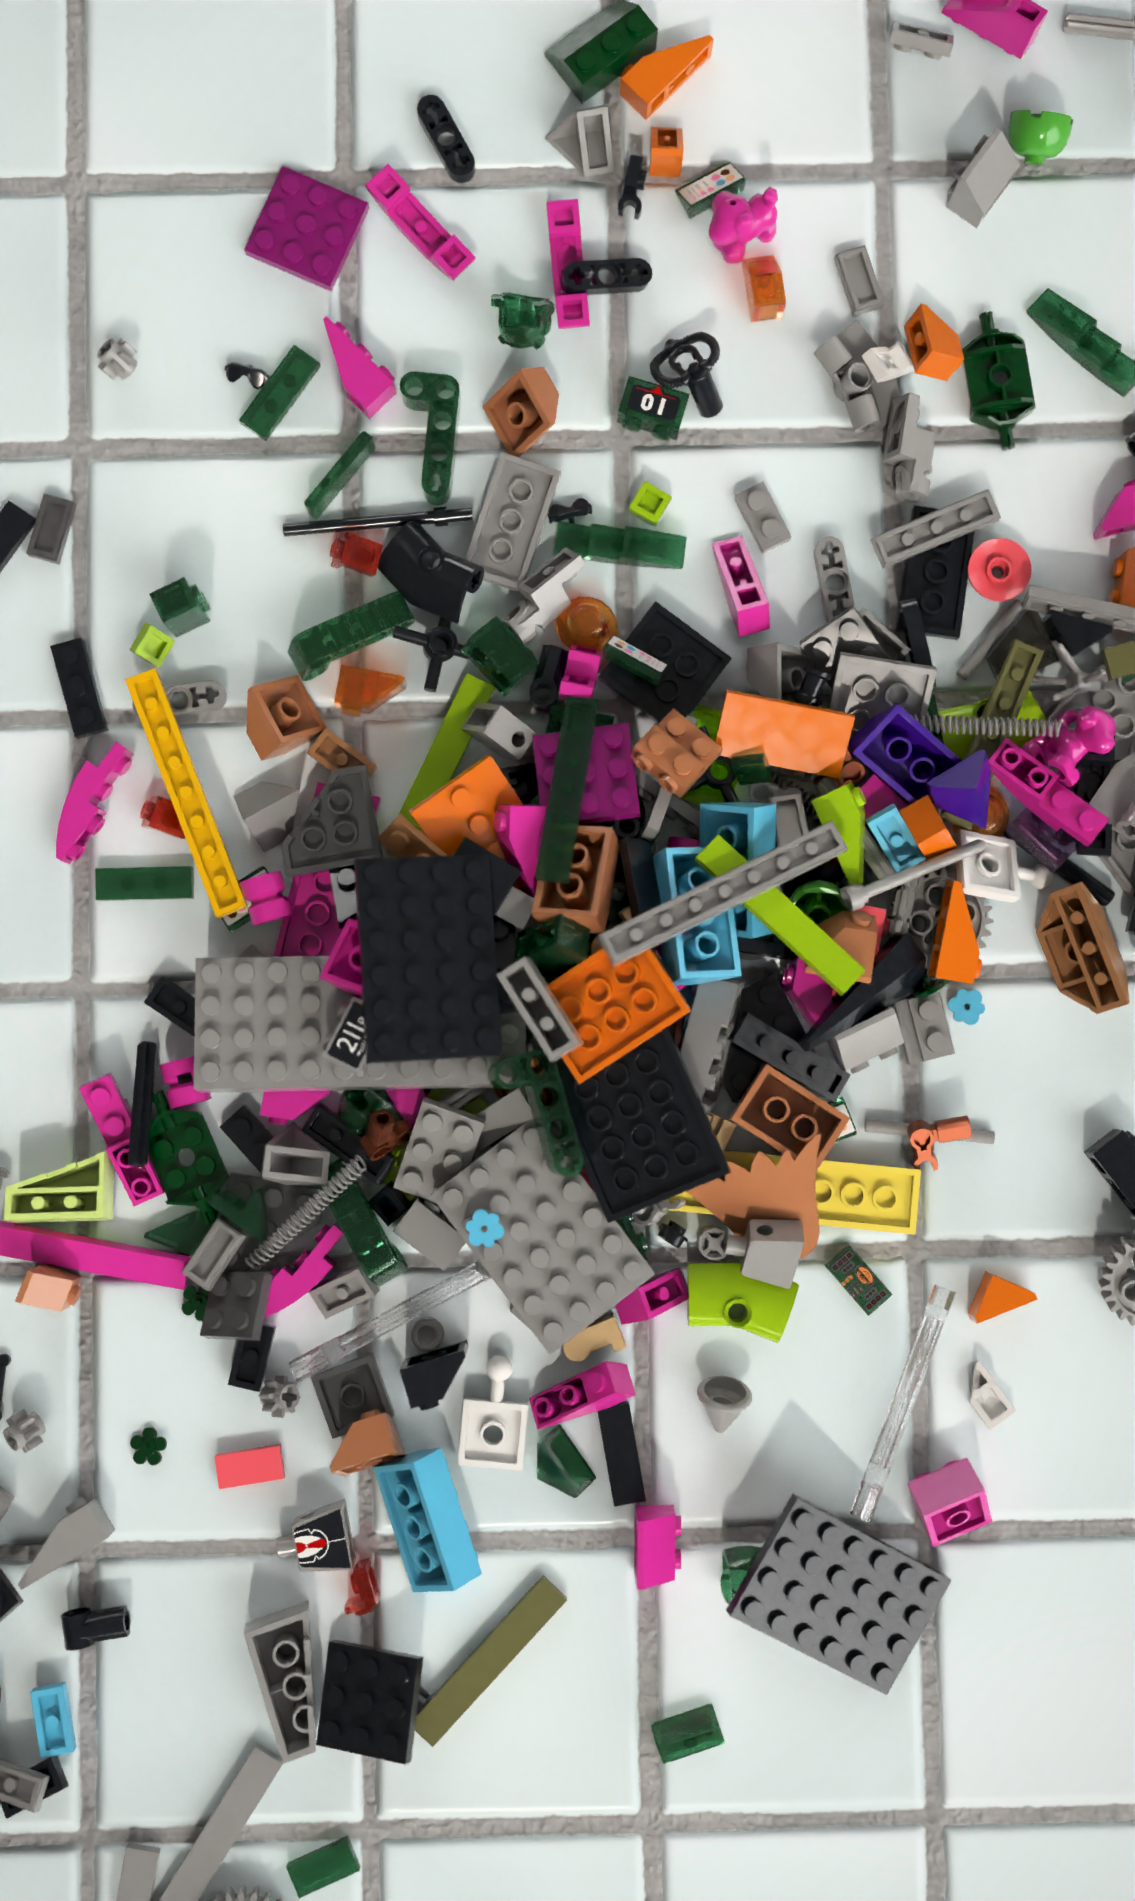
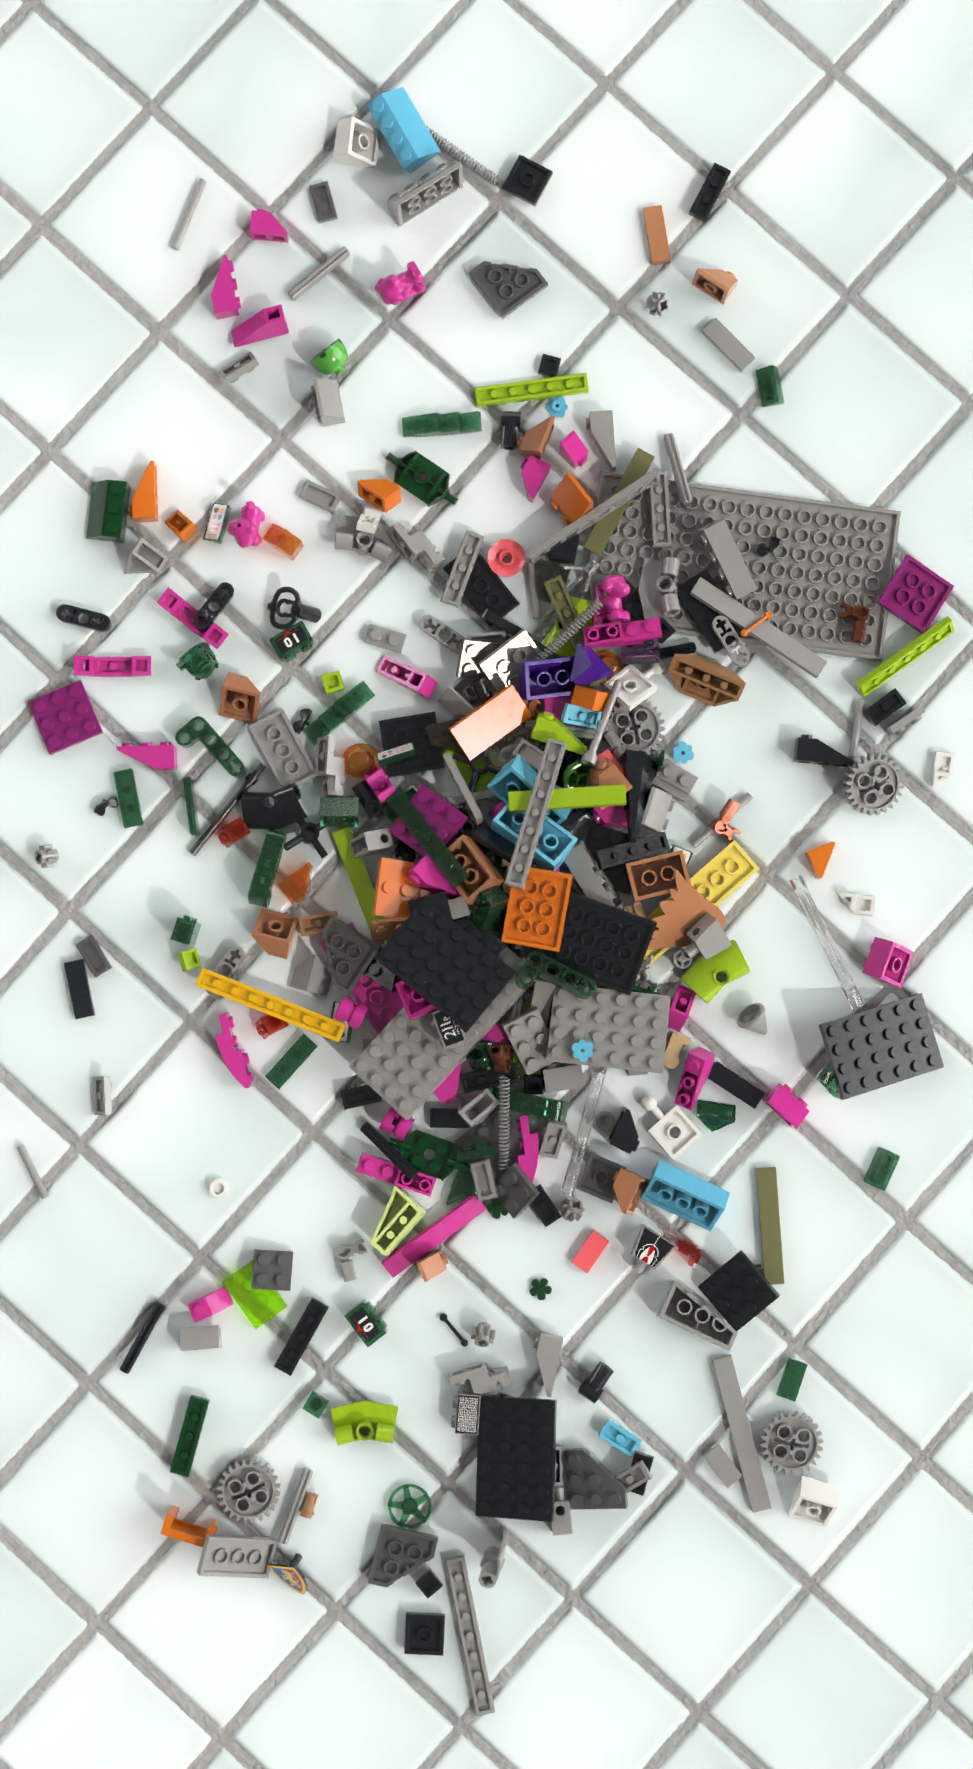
camera: 40 degrees left, 0 degrees up
(79, 688) = (177, 1009): black plate -> none
(540, 1009) = (512, 937): light grey brick -> none
(634, 181) = (183, 553): black plate -> none
(673, 1234) = (661, 973): black plate -> none
(675, 753) = (455, 776): nougat plate -> none
(707, 693) = (441, 737): none -> clear smoke wing
(751, 769) = (492, 749): clear green tile -> none
(858, 1280) = (756, 911): tile -> none
(955, 945) = (651, 734): orange slope -> none

